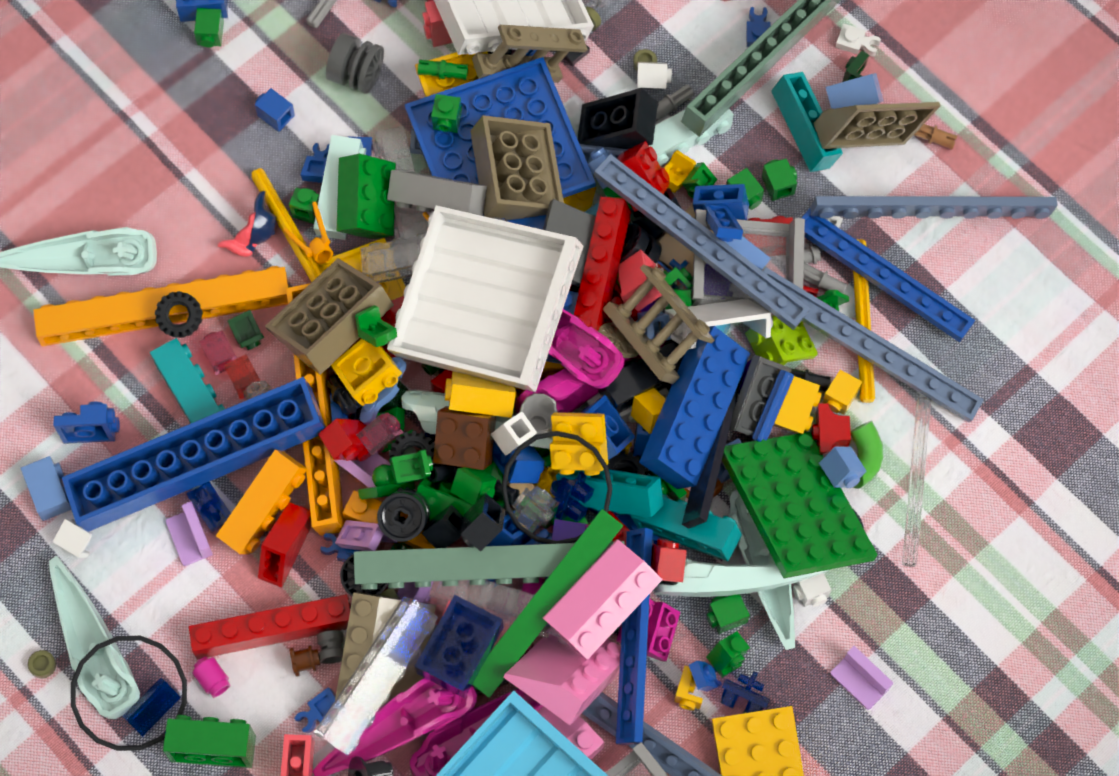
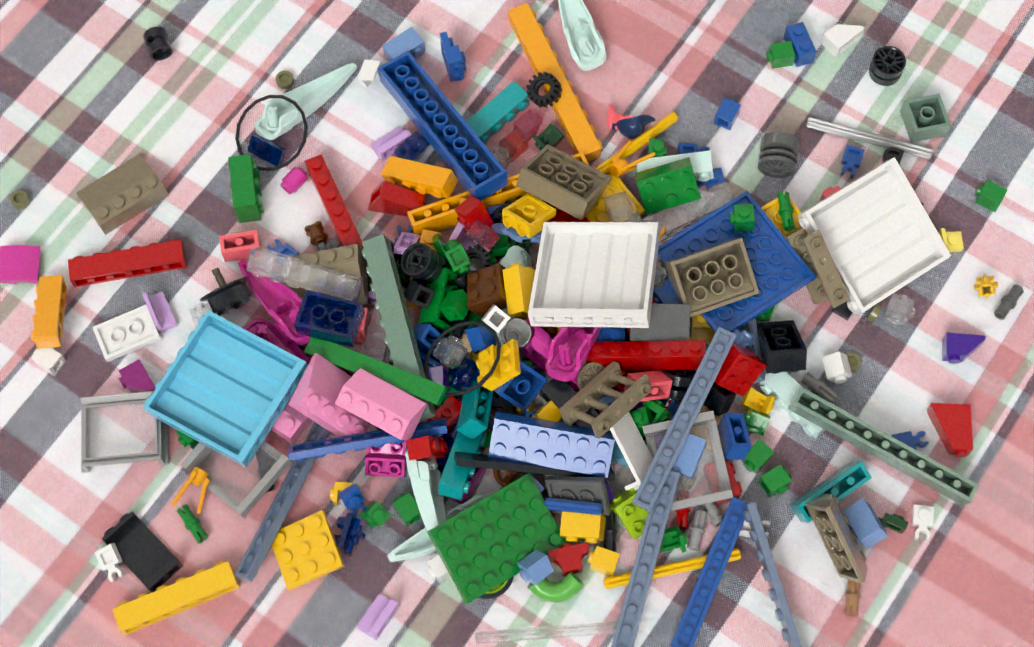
camera: 80 degrees right, 0 degrees up
(373, 329) = (555, 208): green bracket -> none
(428, 191) = (676, 227): light grey brick -> none
(482, 522) = (422, 311): black piece -> none
(722, 222) = (706, 430): blue plate -> none

